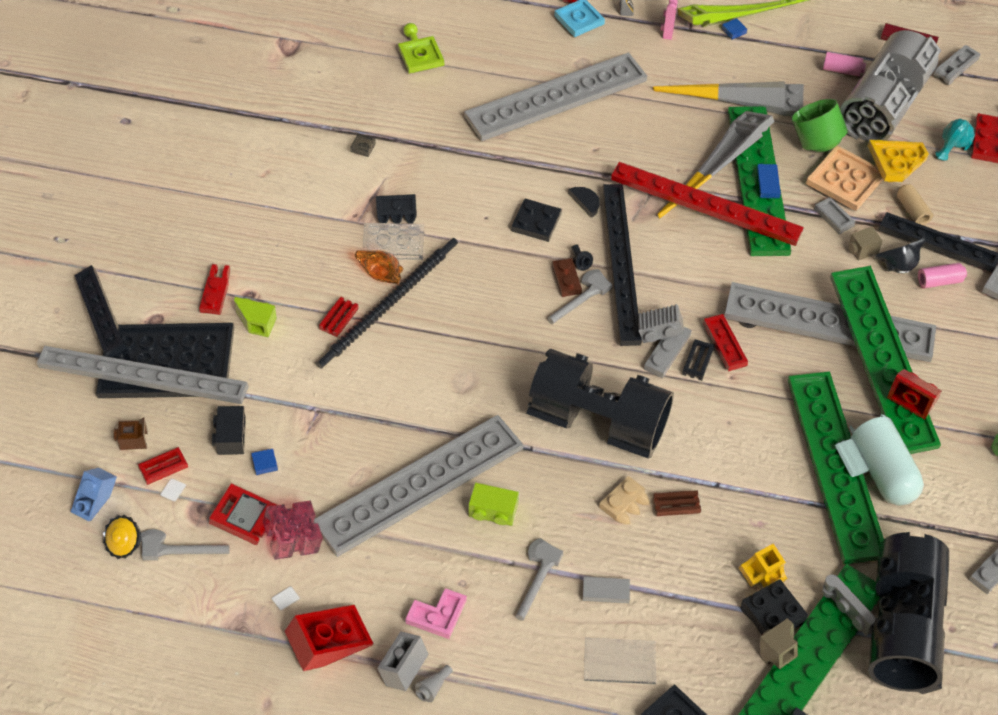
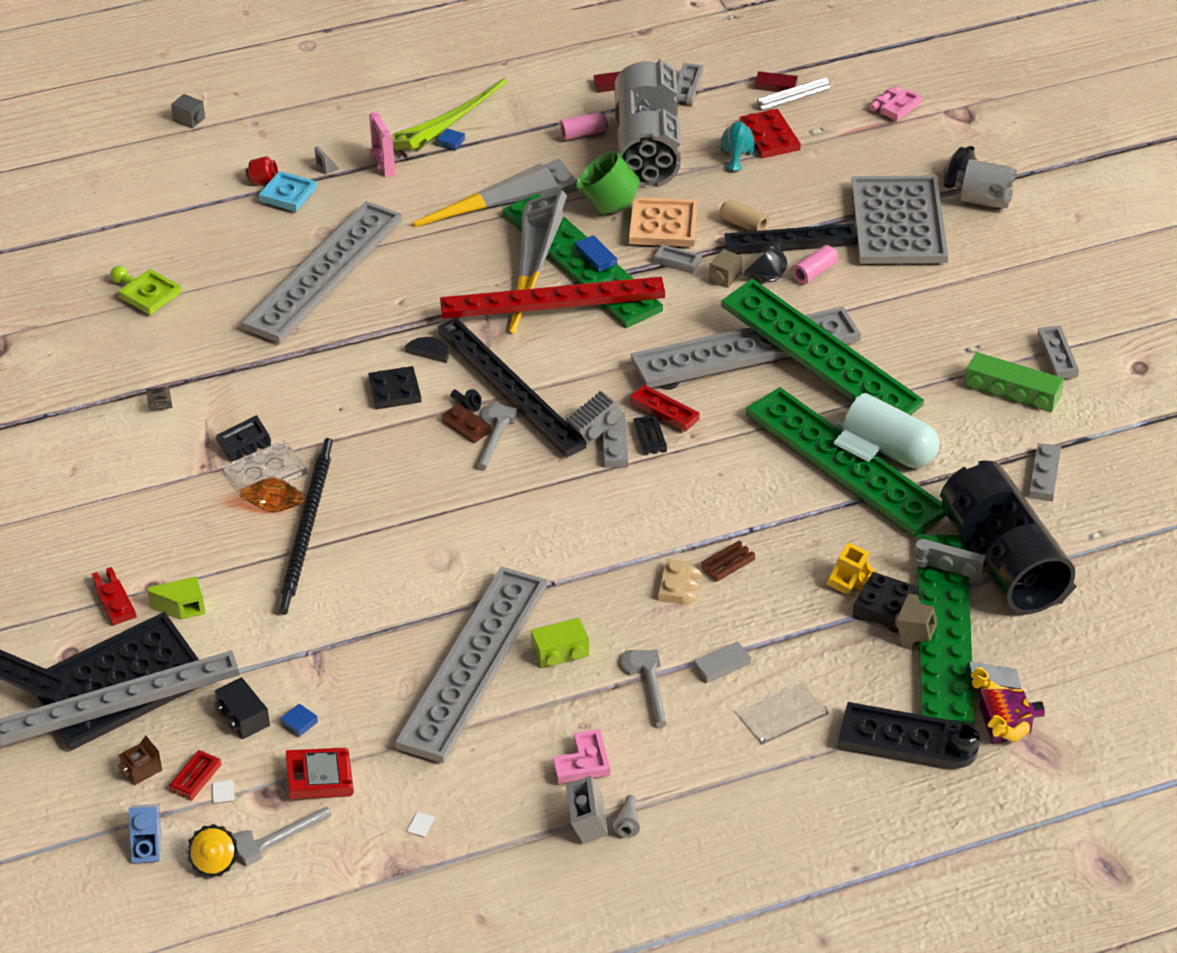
camera: 30 degrees left, 10 degrees down
(292, 530) = (384, 757): clear pink brick -> none
(326, 327) = (265, 547): red tile -> none
(327, 636) = (493, 831): red slope -> none
(564, 387) = (639, 499): black cylinder -> none
(897, 158) = (700, 184): yellow plate -> none
(914, 393) = (873, 365): red slope -> none

